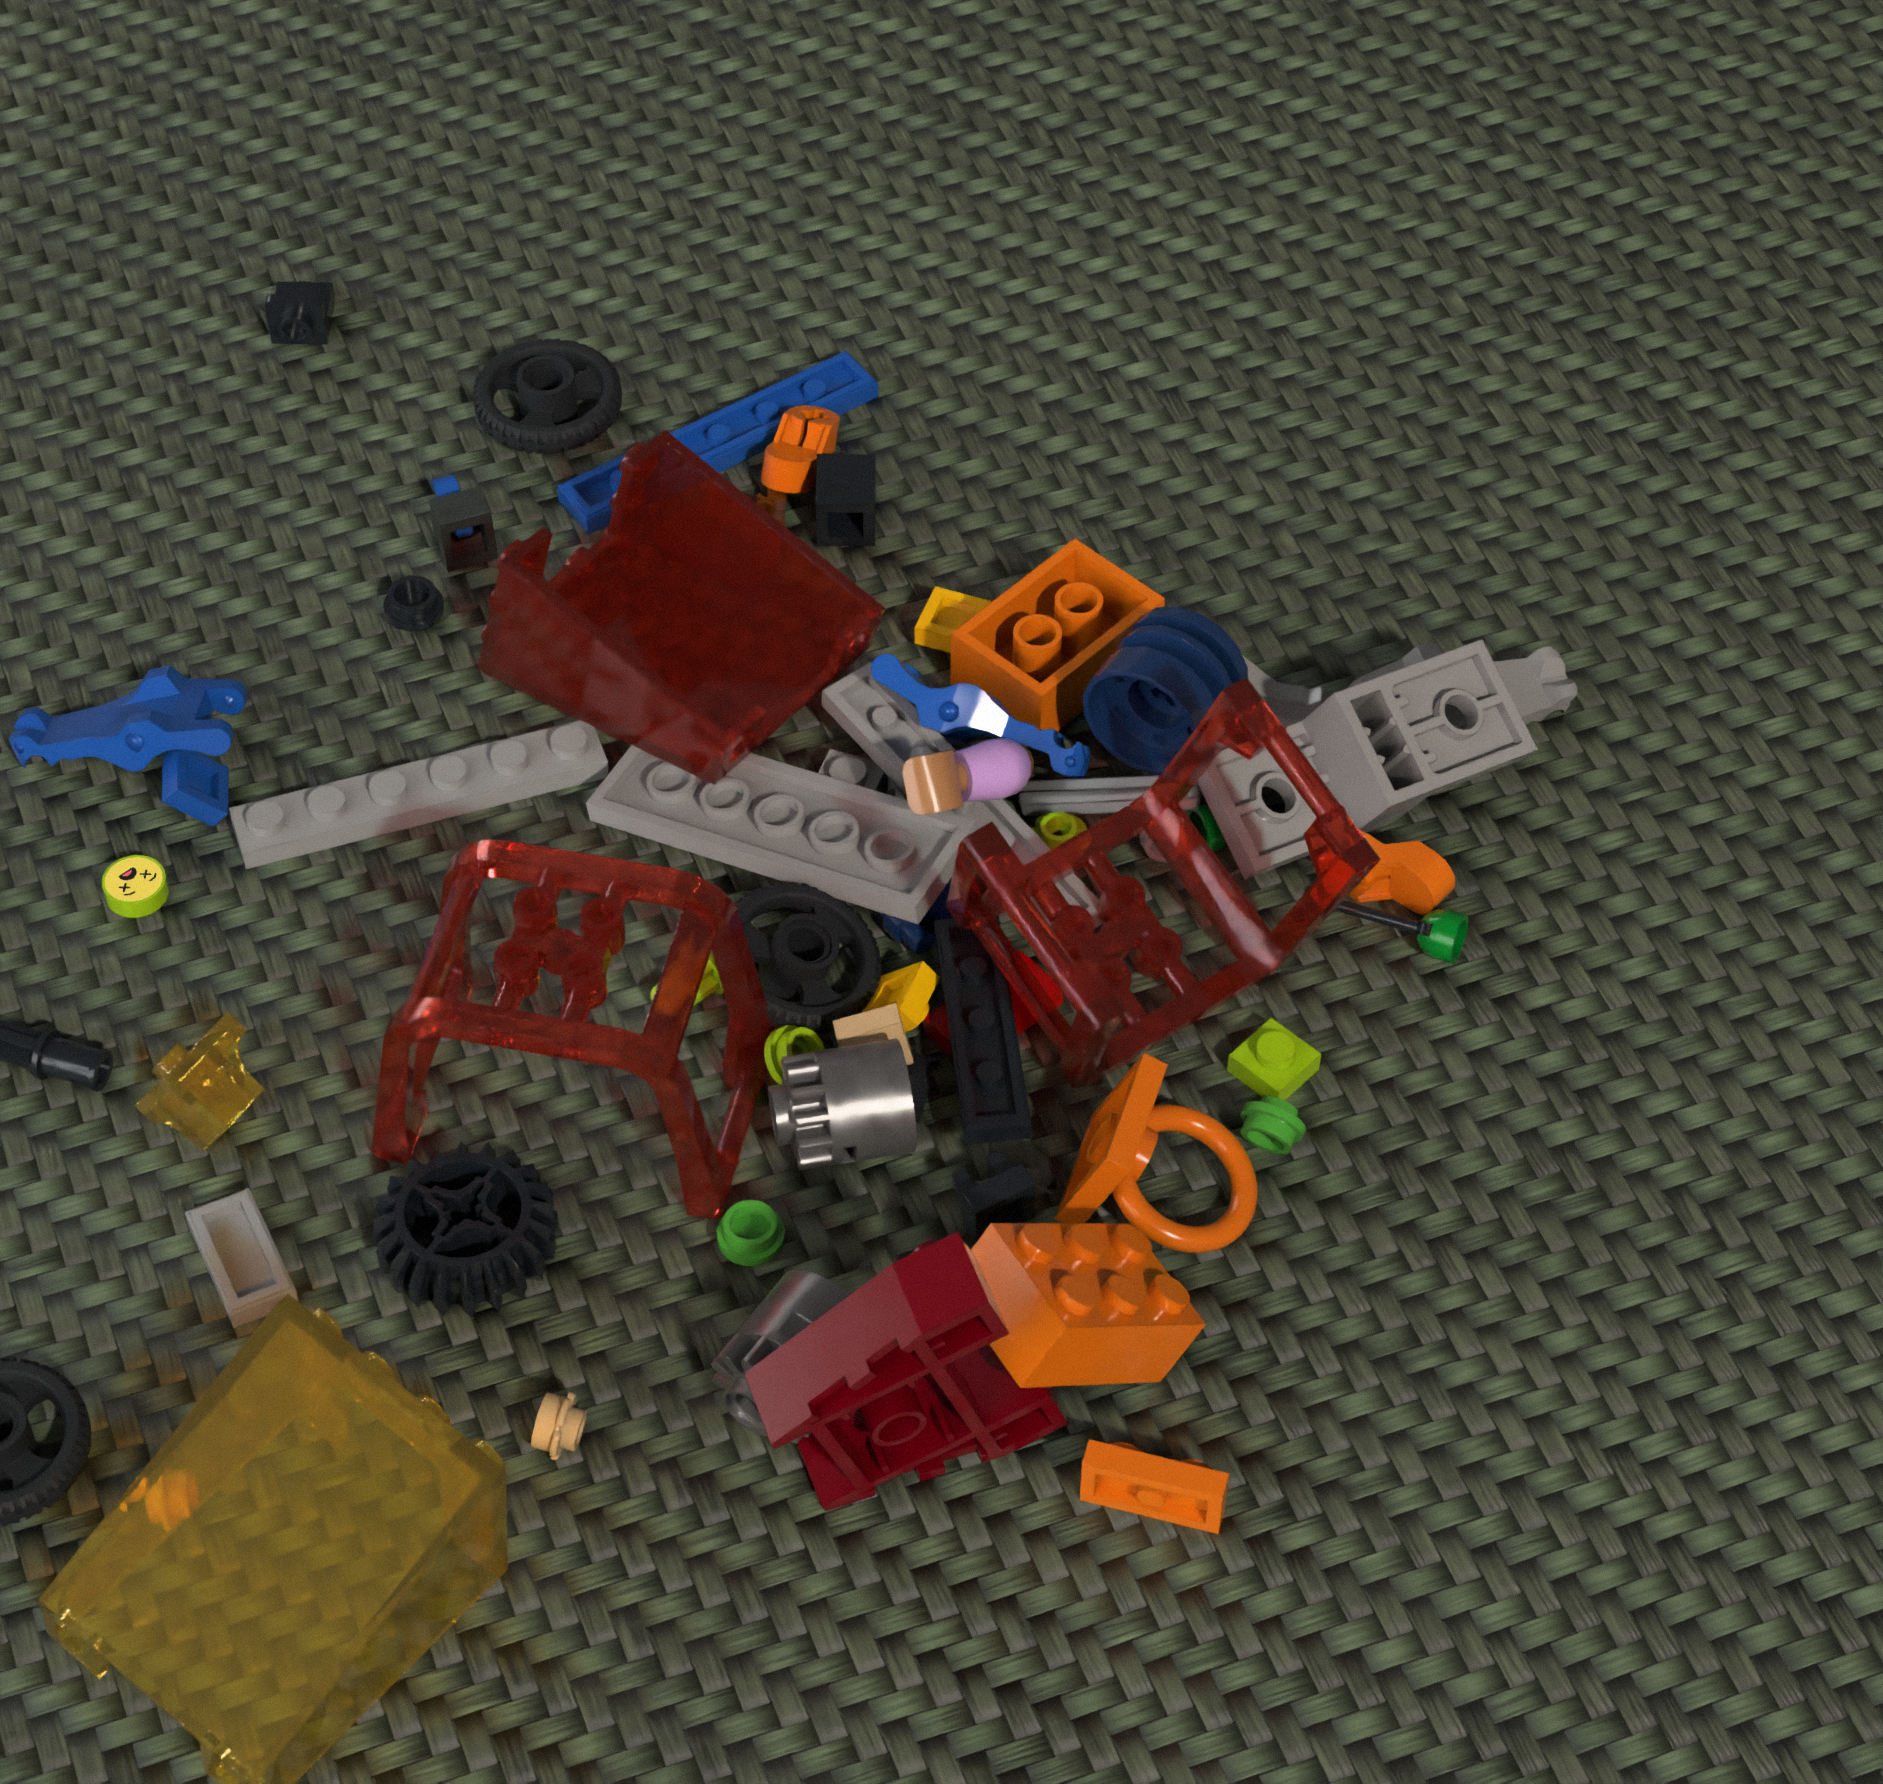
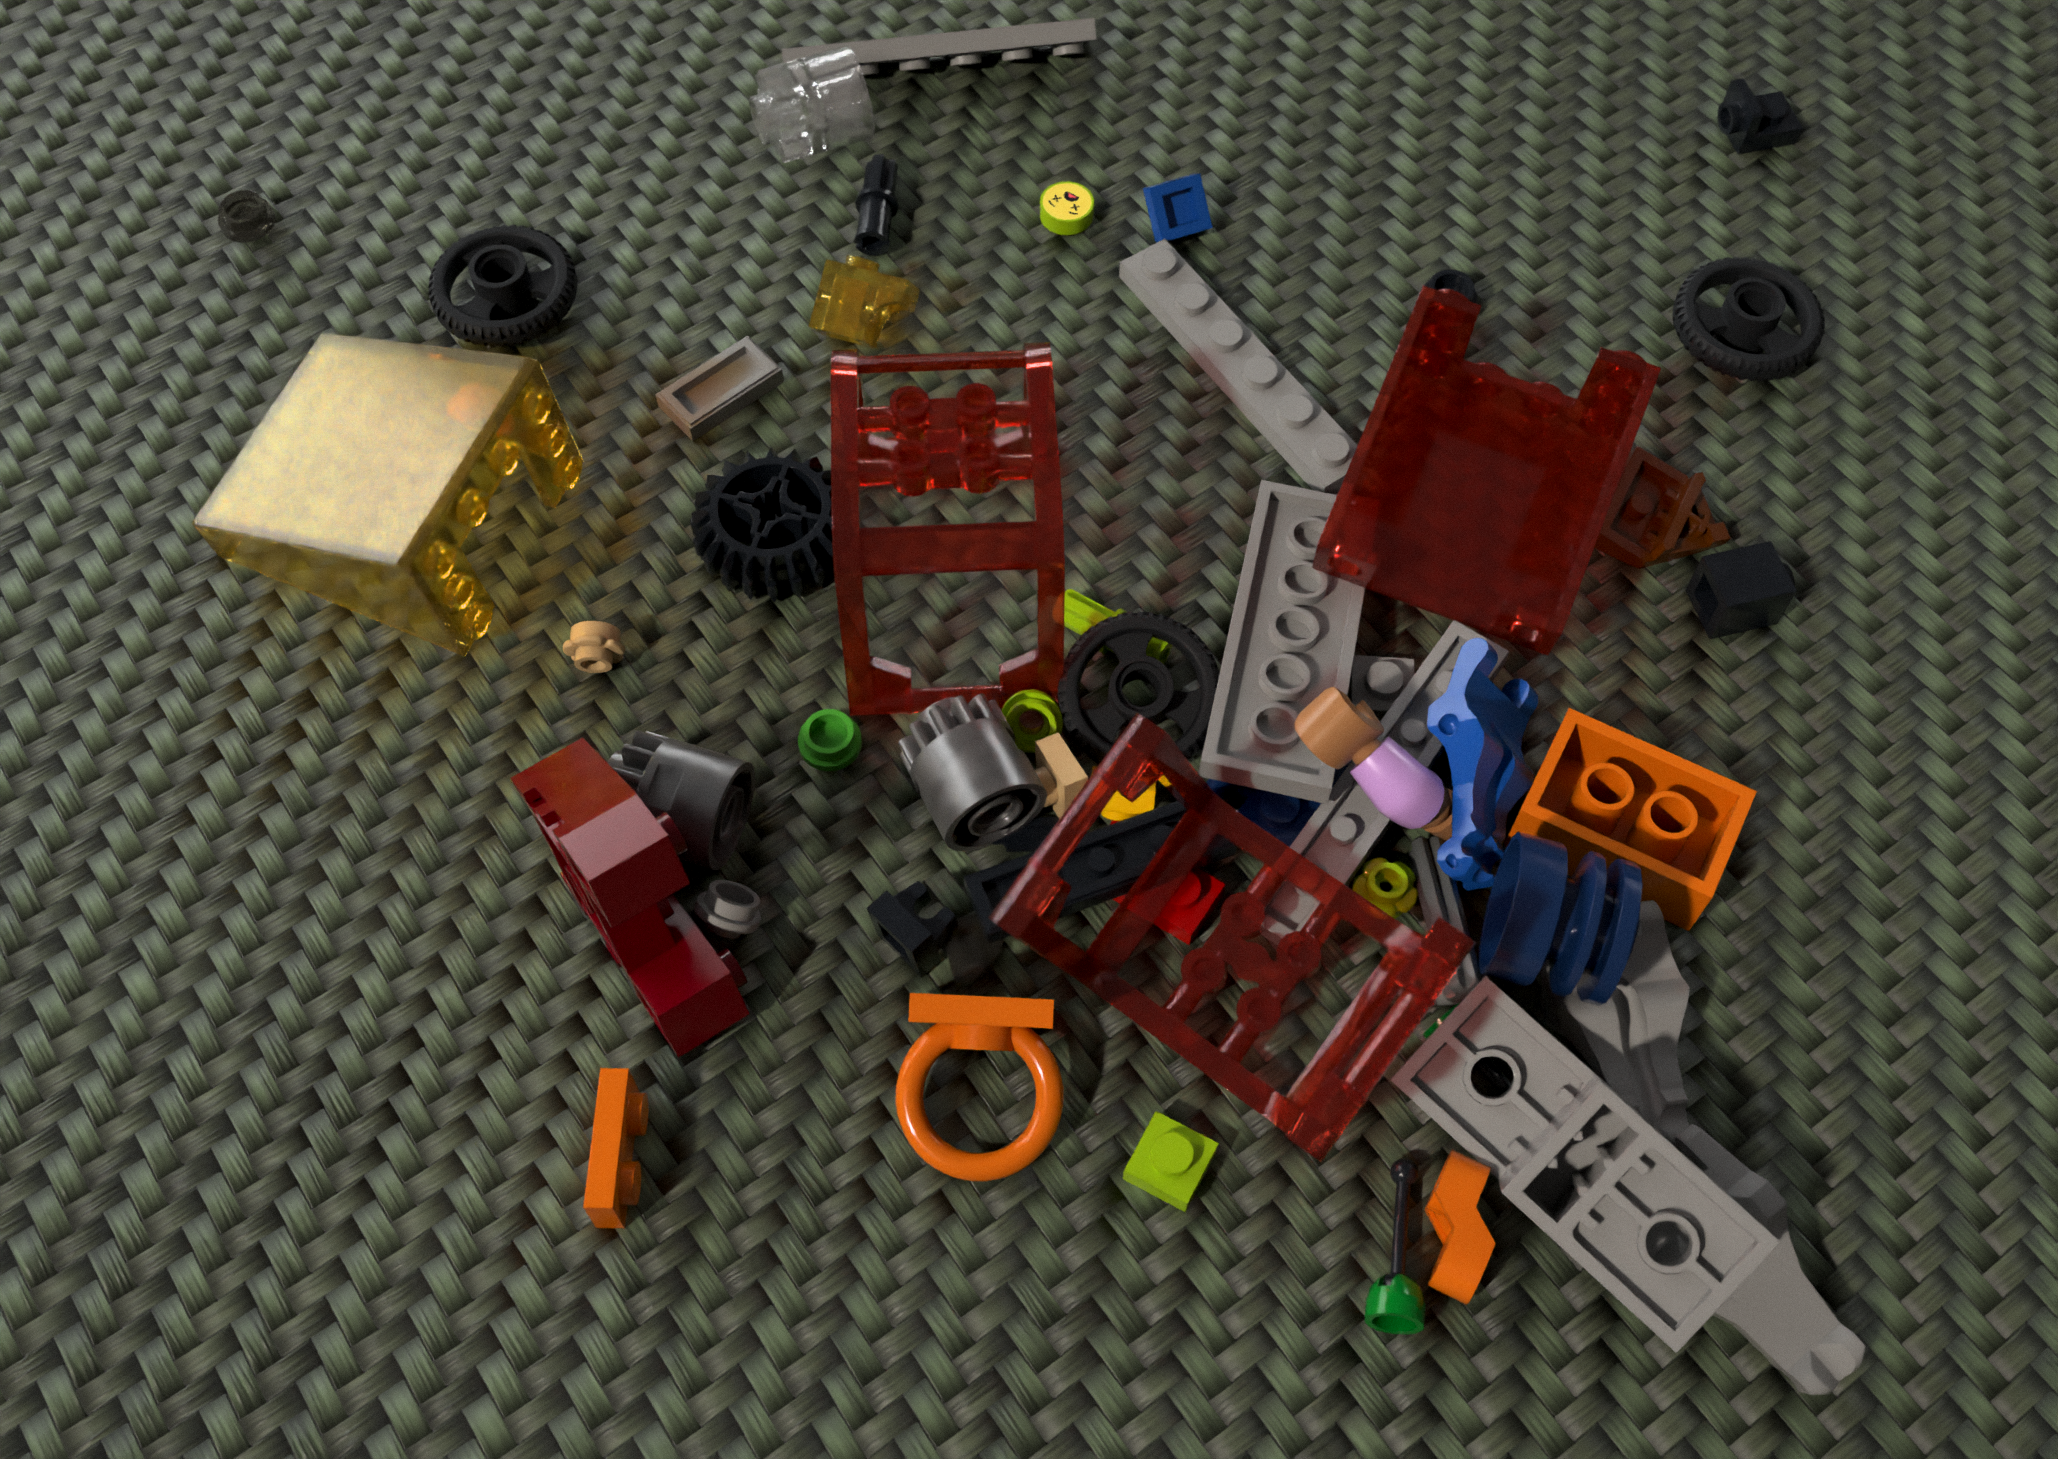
camera: 75 degrees right, 10 degrees up
(130, 731) = (1220, 152): blue animal -> none
(461, 525) = (1554, 299): pearl dark grey piece -> none
(731, 432) = (1792, 483): blue tile -> none
(792, 455) = (1800, 532): orange piece -> none
(944, 614) = (1630, 712): yellow plate -> none
(1084, 1304) = (762, 1015): orange brick -> none
(1271, 1124) = (1076, 1171): bright green plate -> none

